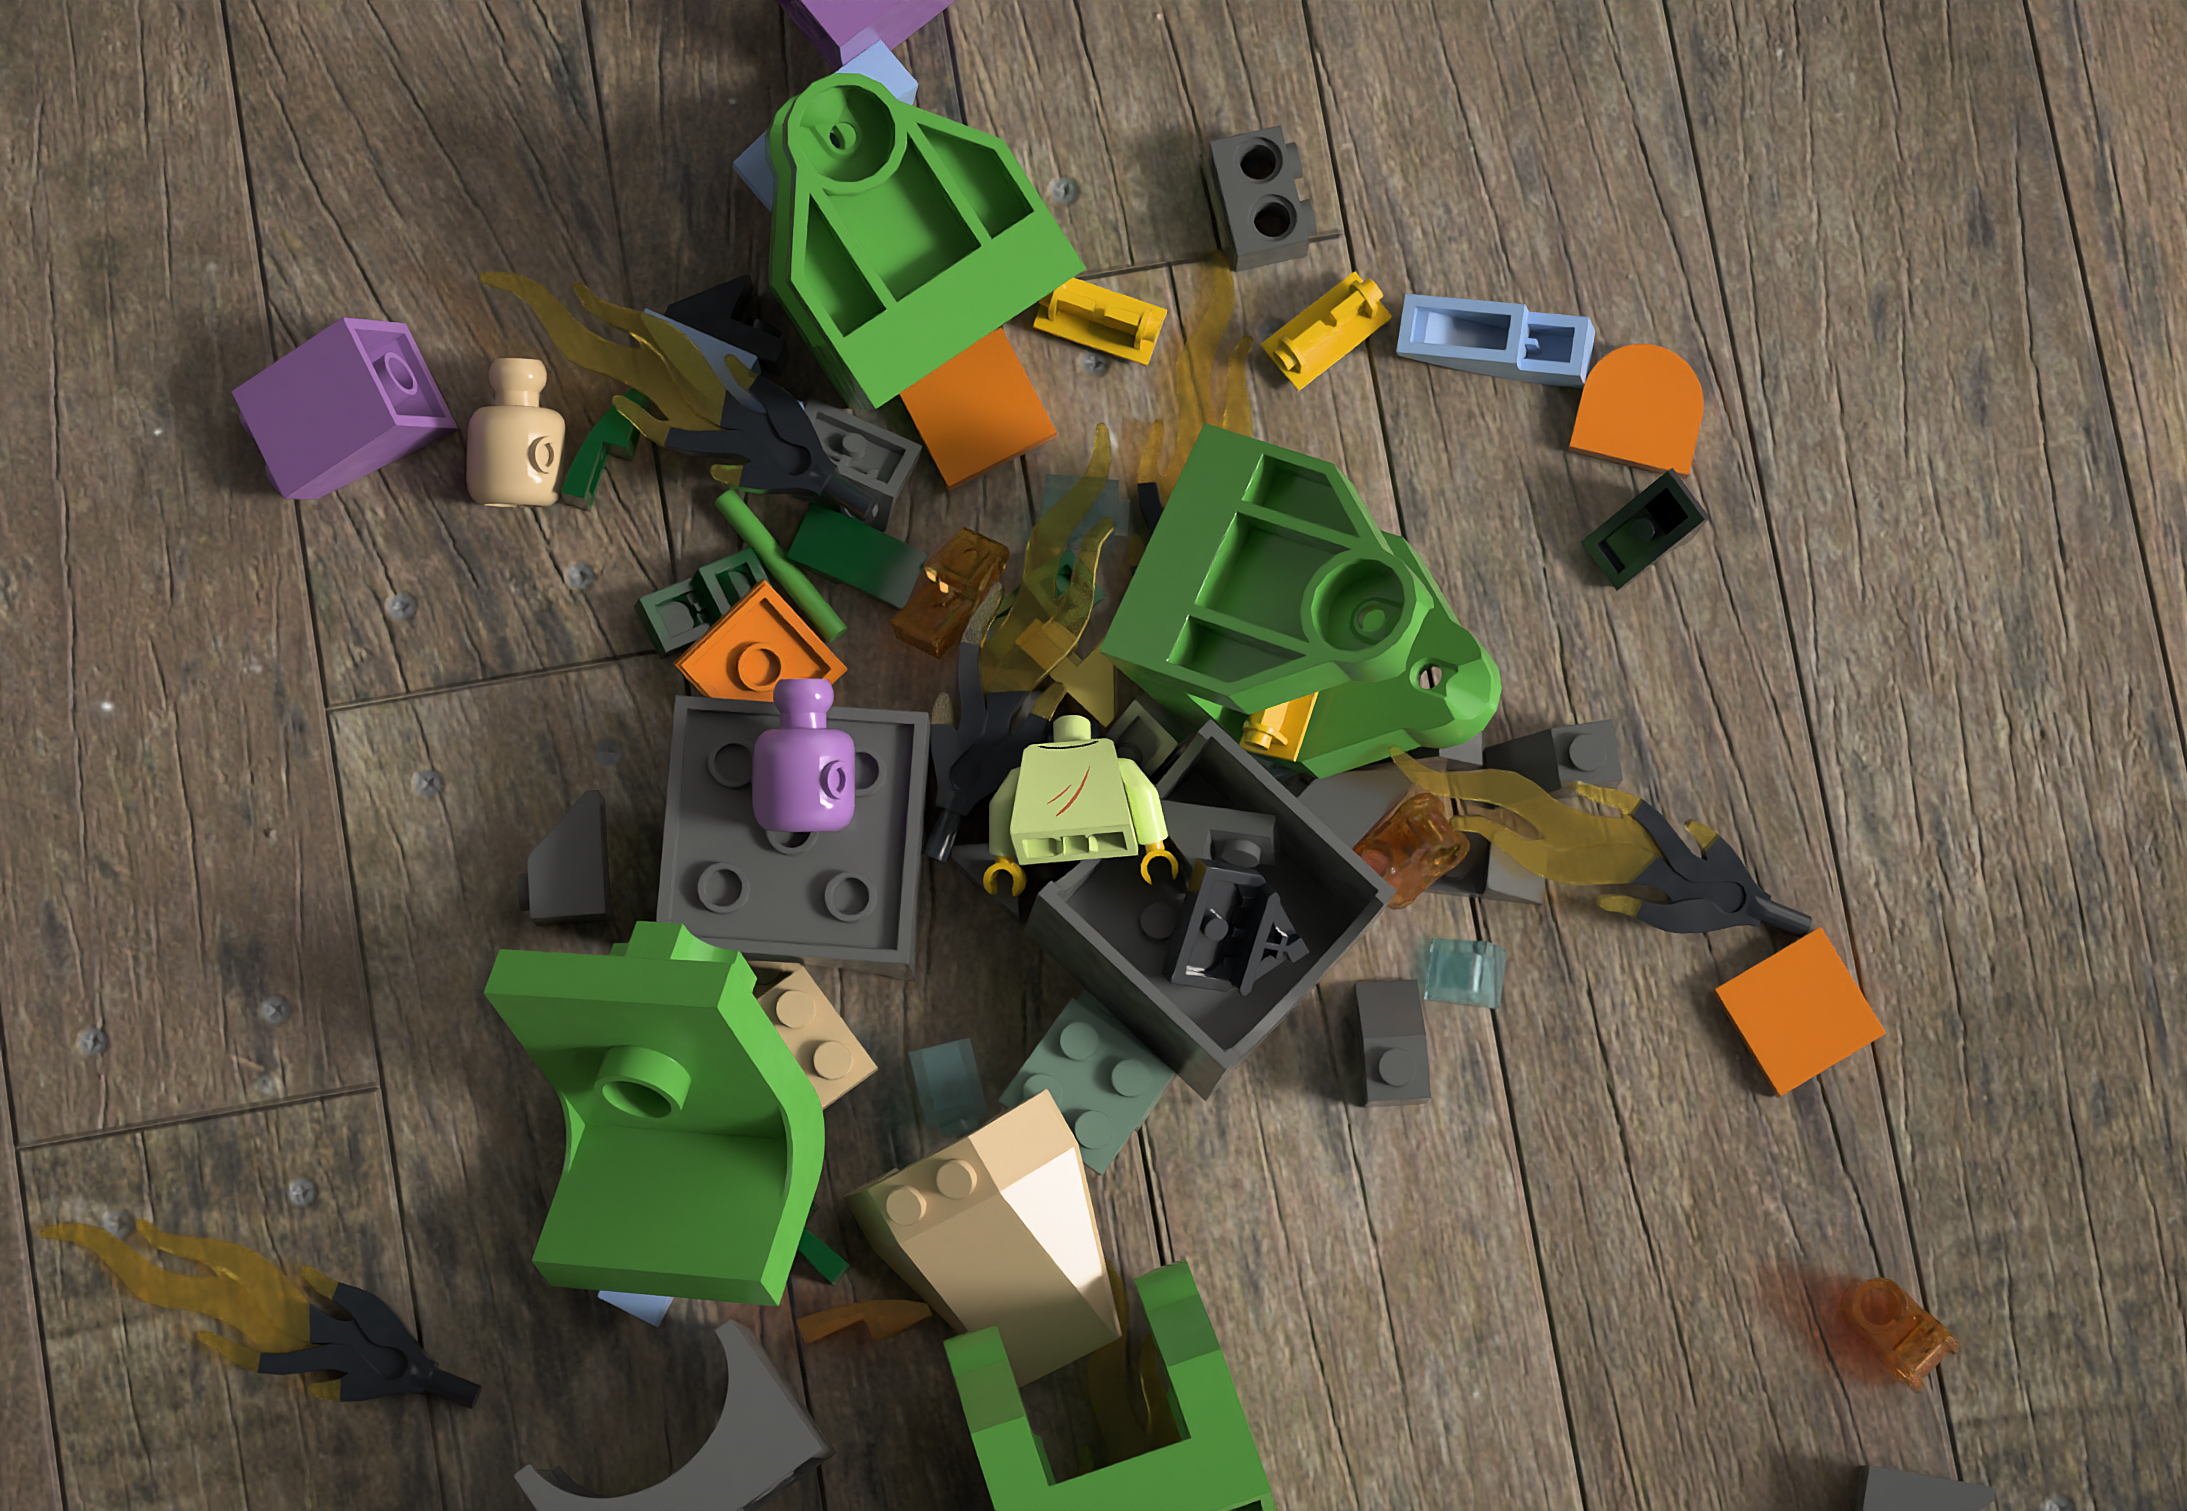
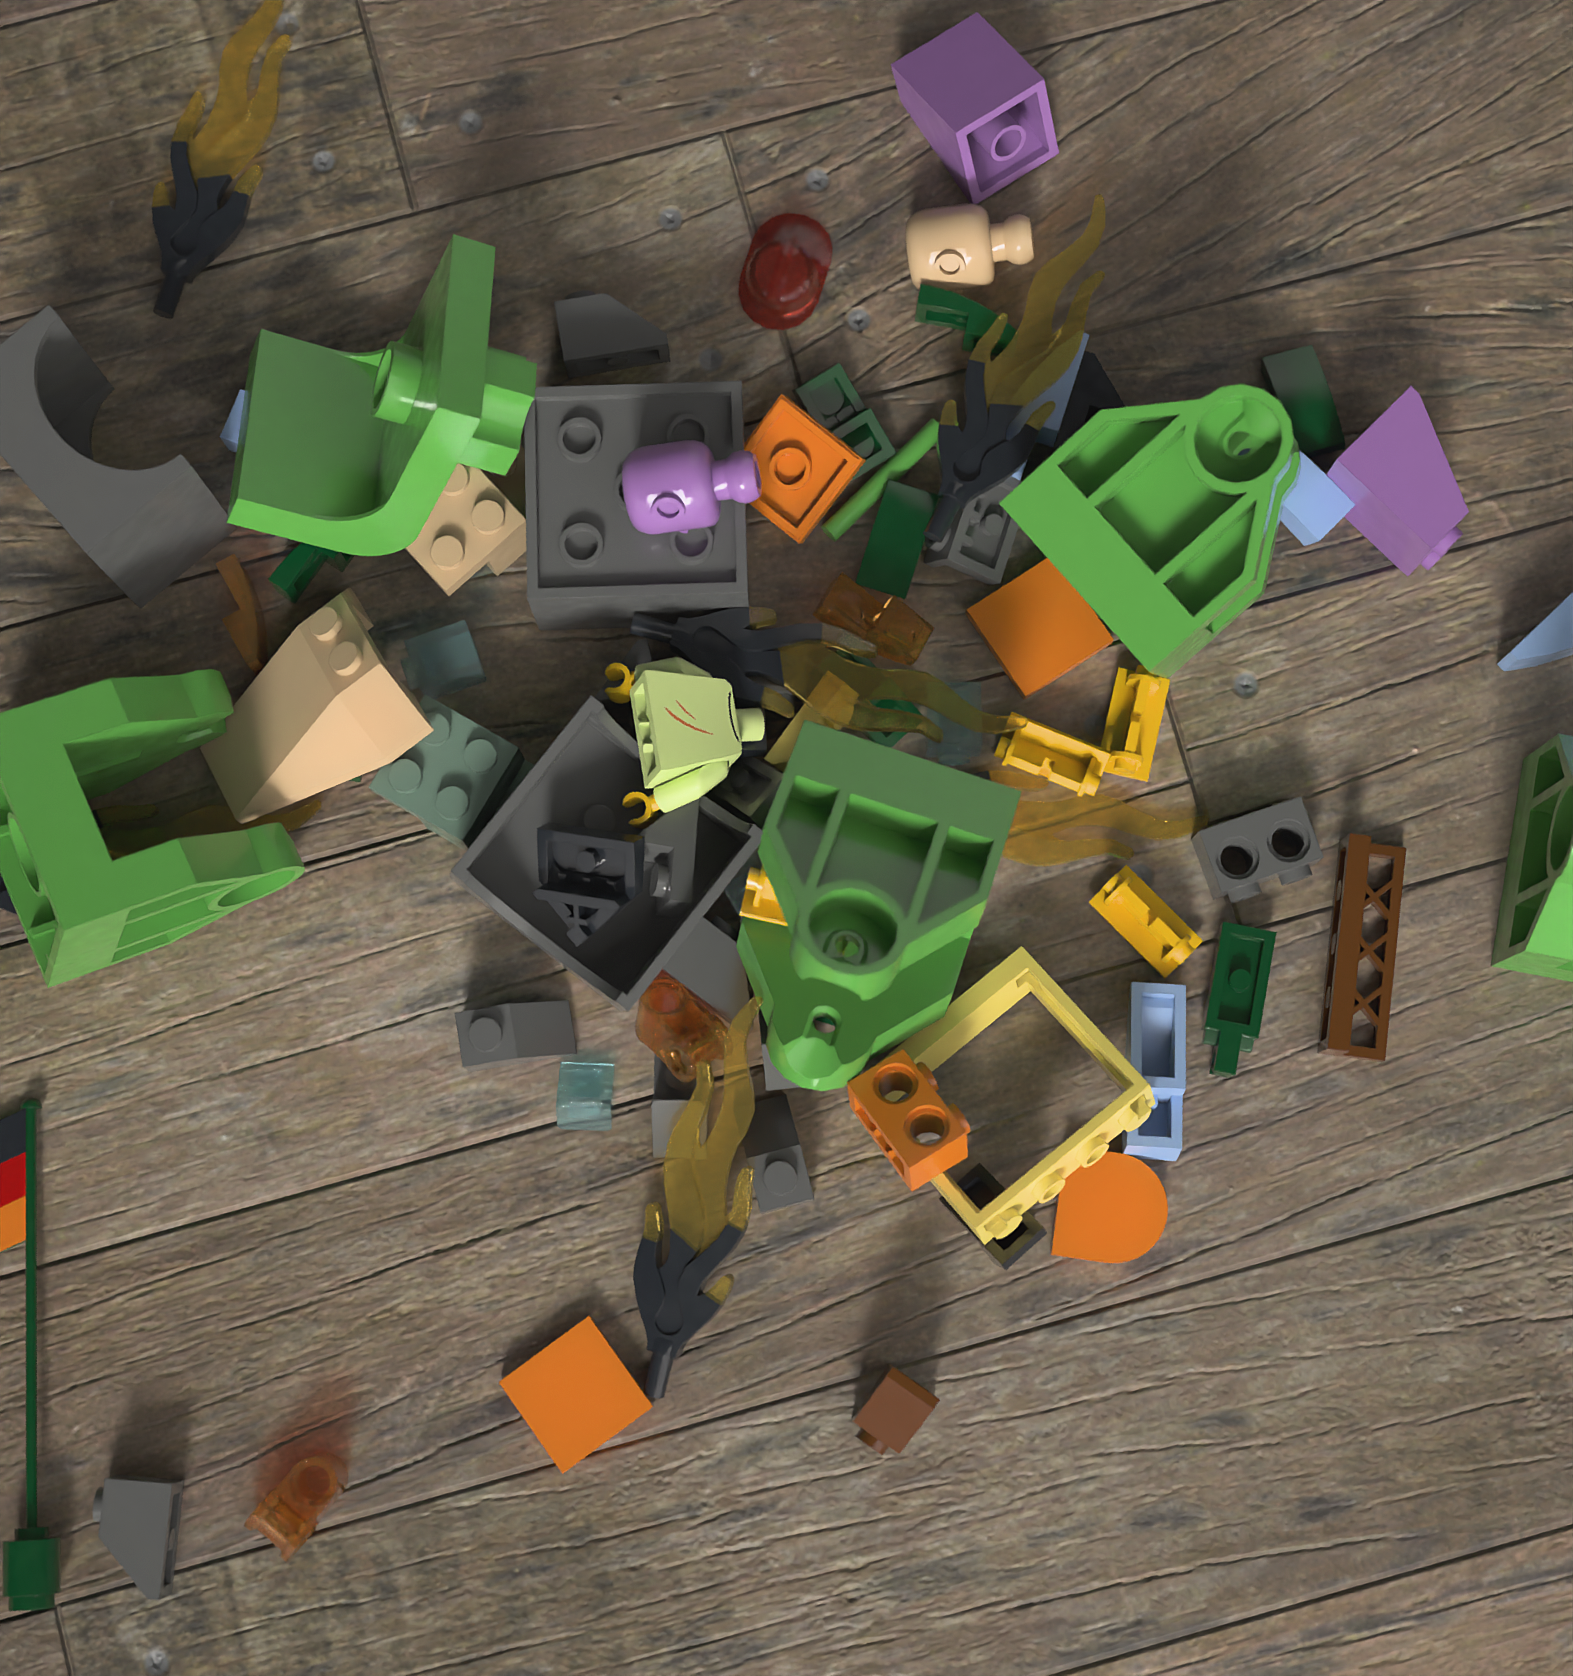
camera: 85 degrees right, 0 degrees up
(511, 654) = (785, 271): none -> clear red piece
(743, 83) = (1303, 391): none -> dark green slope
(1136, 393) = (1054, 755): none -> yellow hinge
(1376, 115) = (1345, 948): none -> reddish brown fence
(1409, 521) = (969, 1017): none -> light yellow window
(1419, 241) = (1236, 994): none -> dark green hinge
(1544, 615) = (898, 1123): none -> orange brick
(1847, 659) = (893, 1411): none -> reddish brown slope

